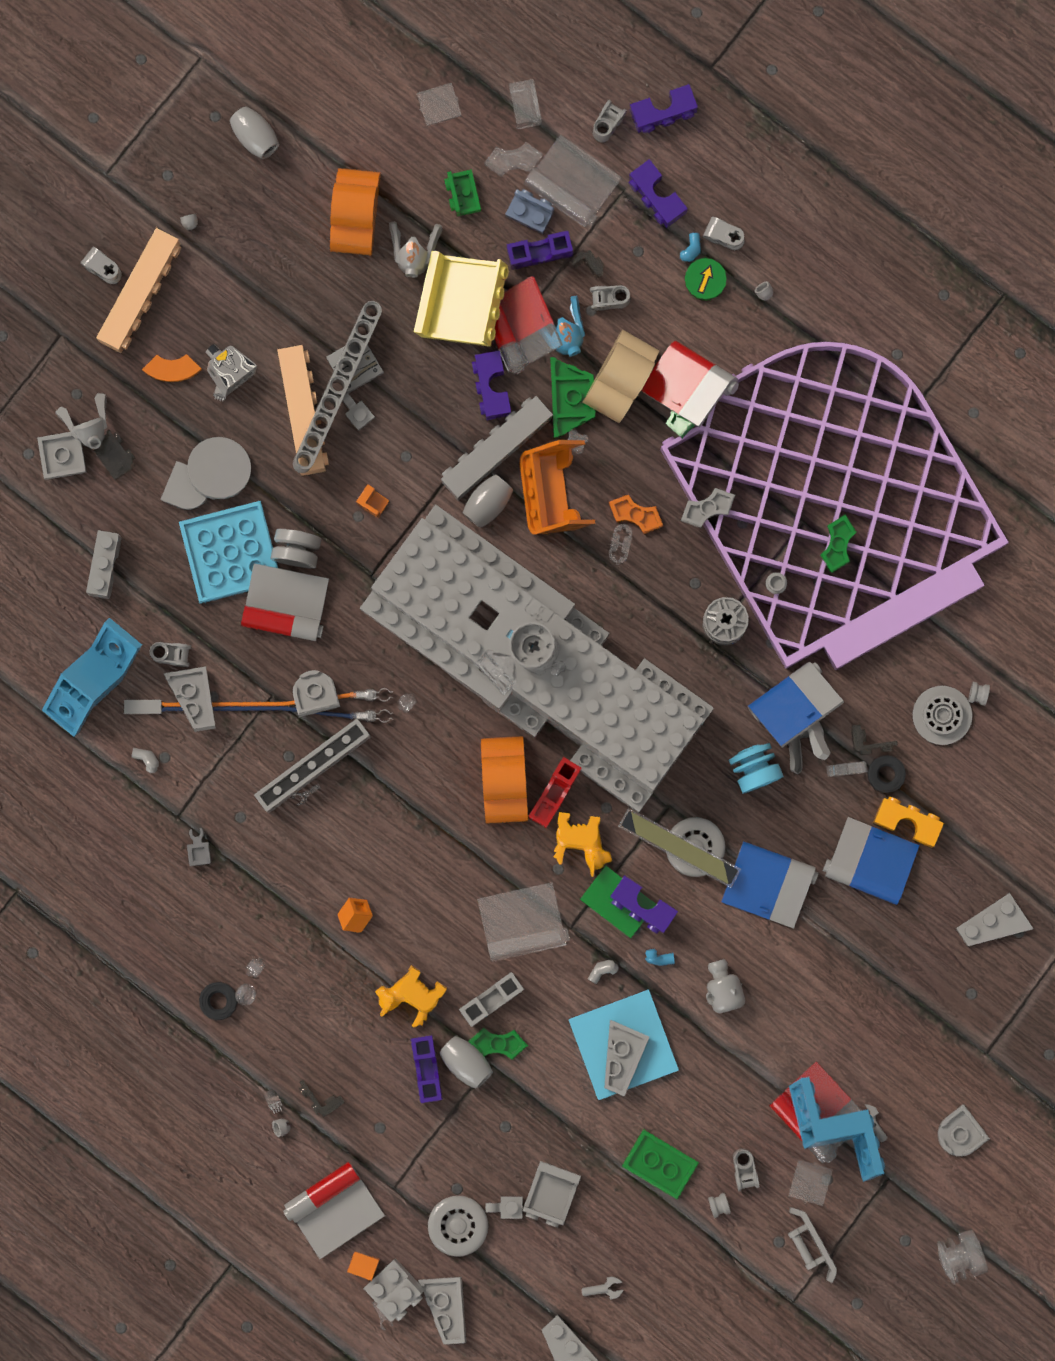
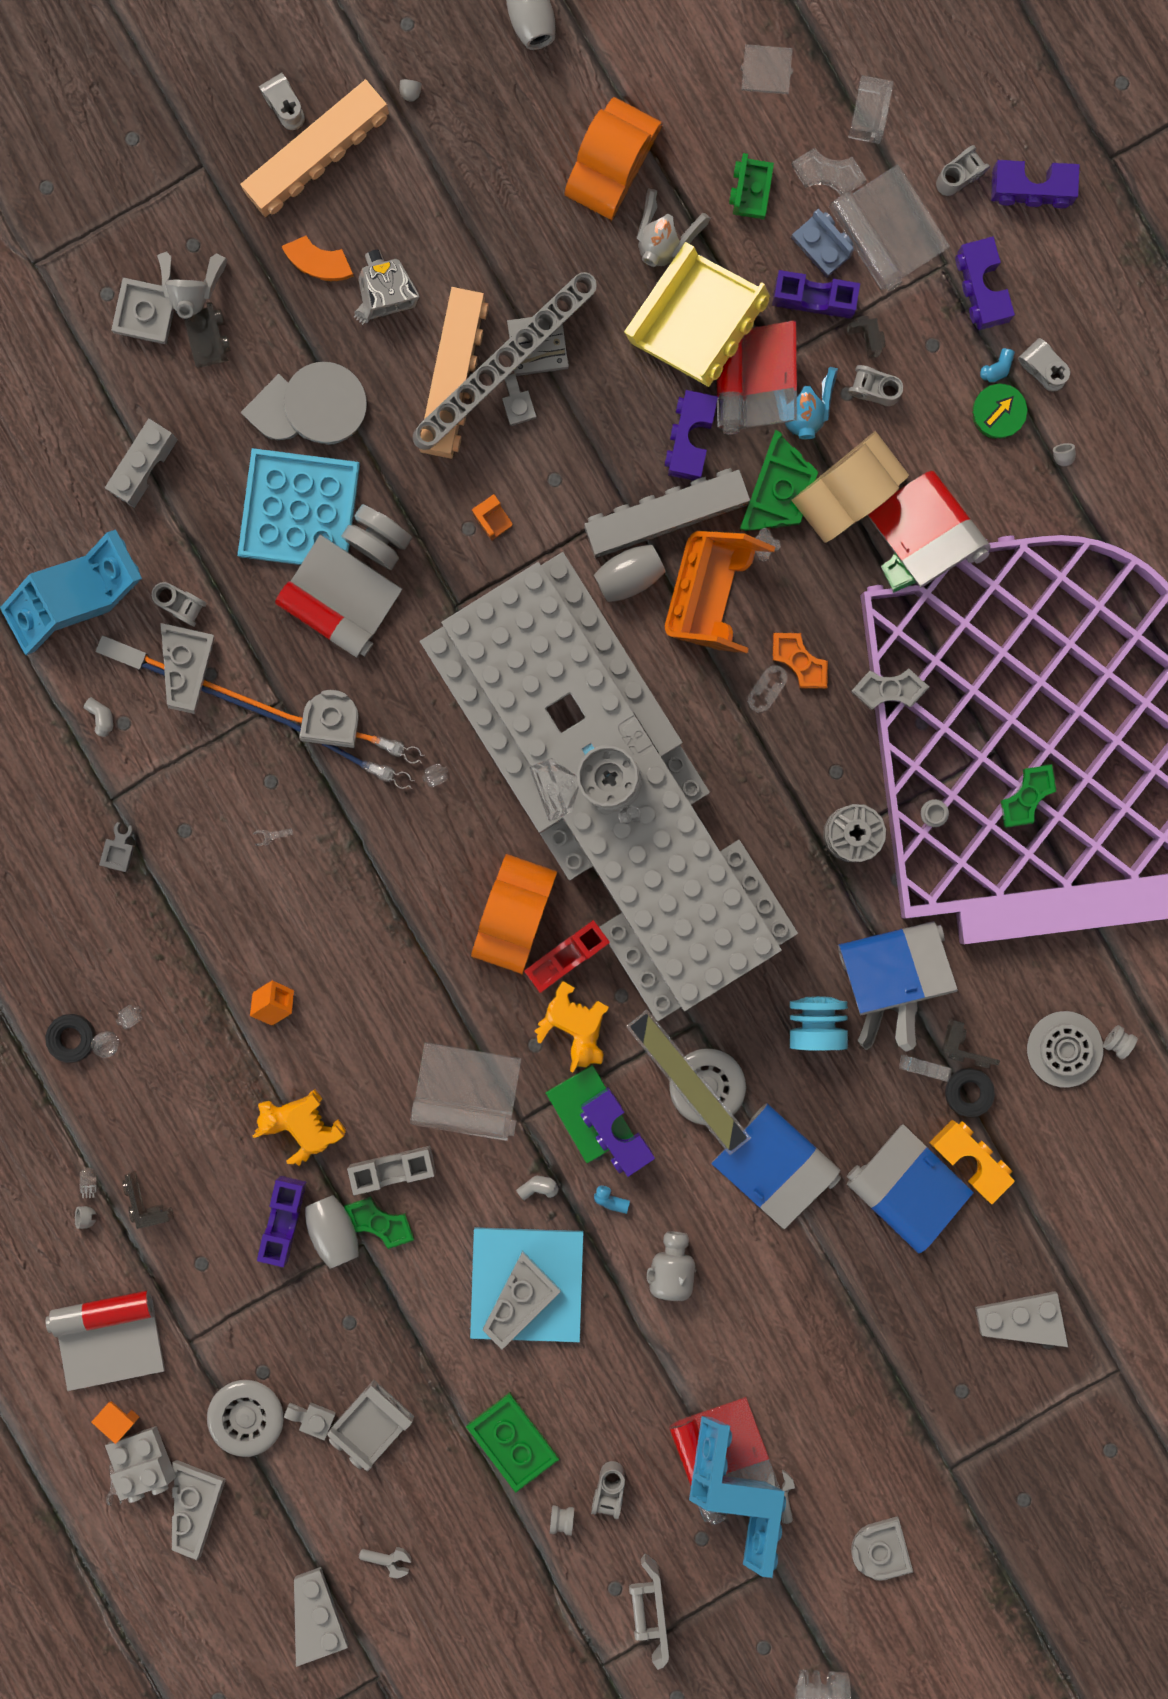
camera: 20 degrees right, 5 degrees up
(312, 766) = (291, 806): light grey brick -> none
(810, 1182) = (680, 1535): clear piece -> none

